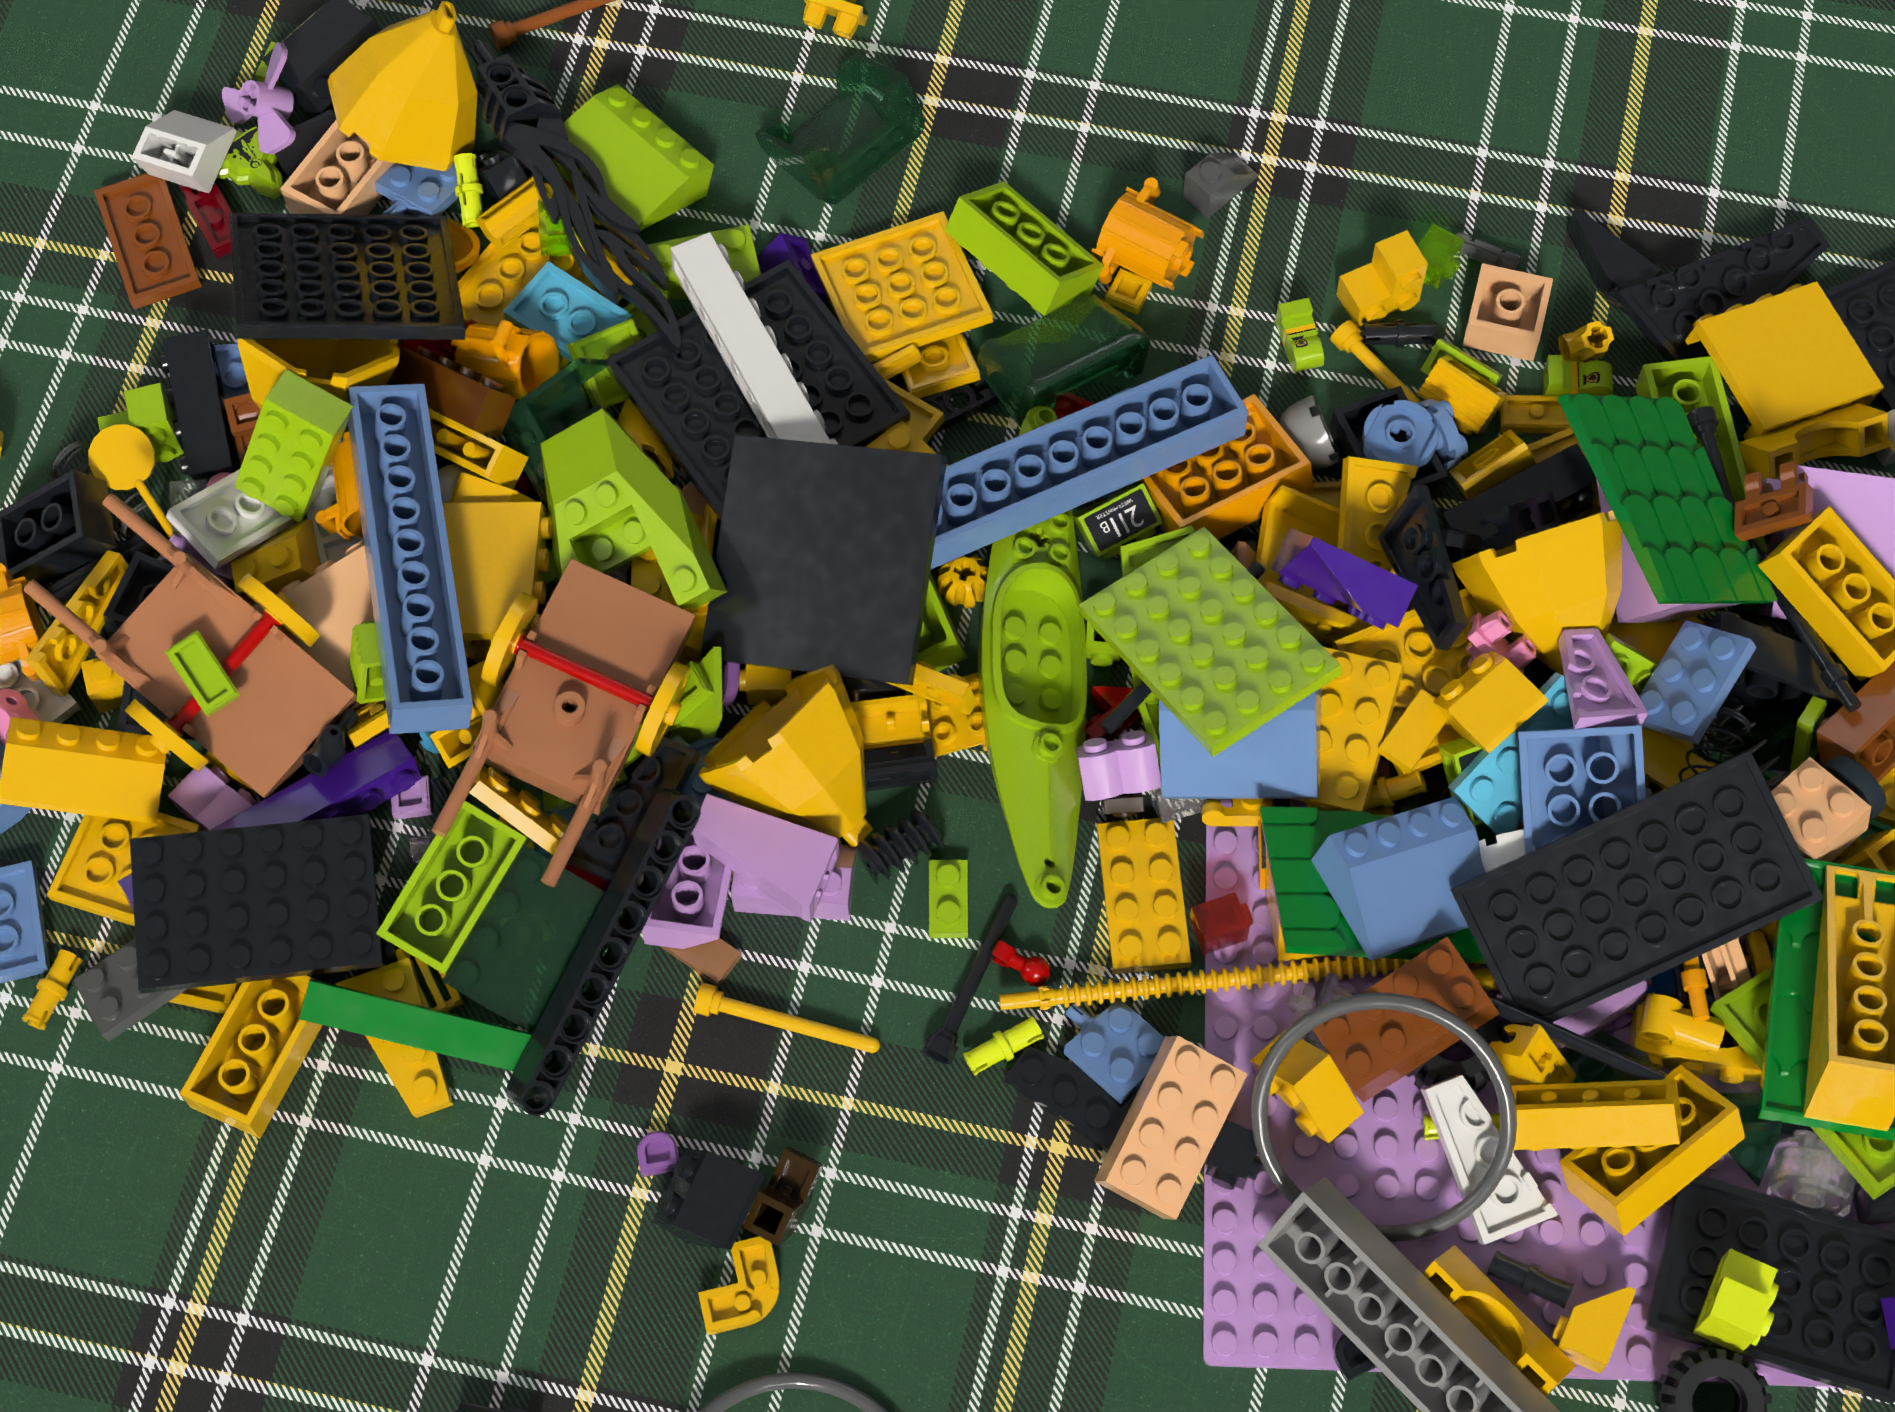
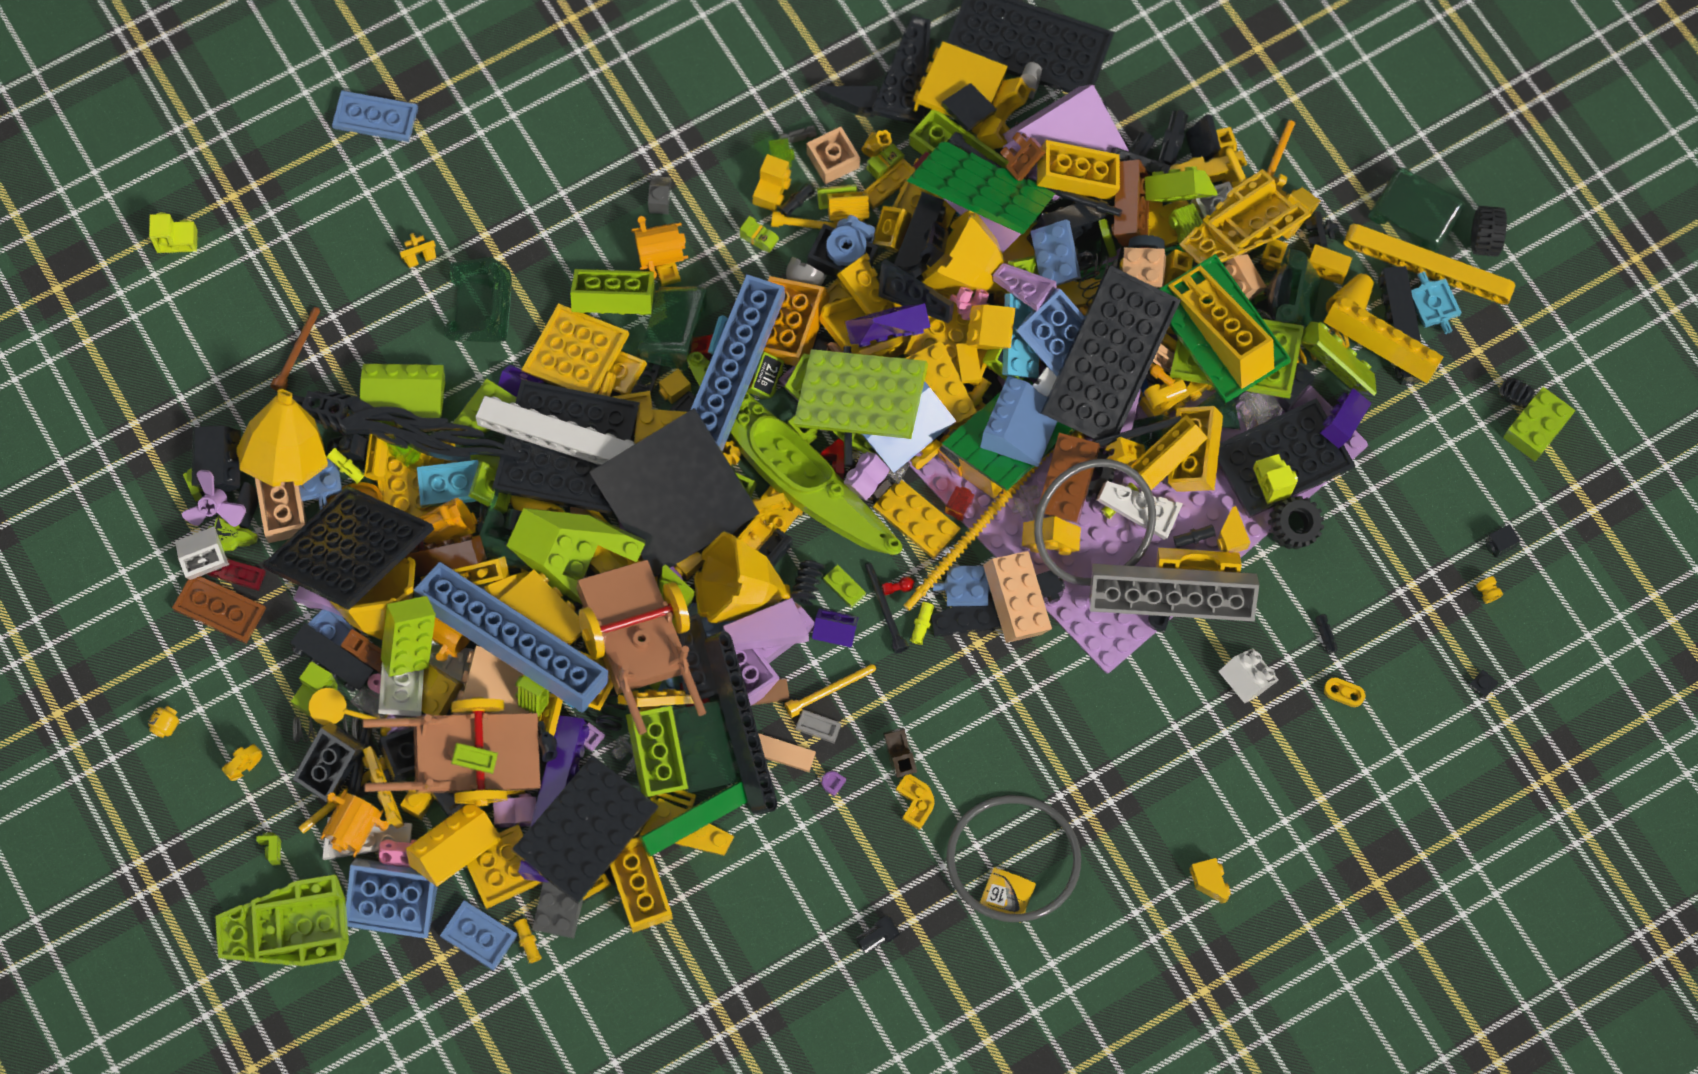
camera: 50 degrees left, 5 degrees up
(634, 1049) = (787, 753): none -> light nougat tile
(707, 1199) = (874, 779): black slope -> none
(718, 1058) = (818, 726): none -> light grey tile
(877, 942) = (835, 627): none -> dark purple panel
(983, 432) = (674, 386): none -> yellow brick
(1765, 391) = (968, 107): none -> black tile

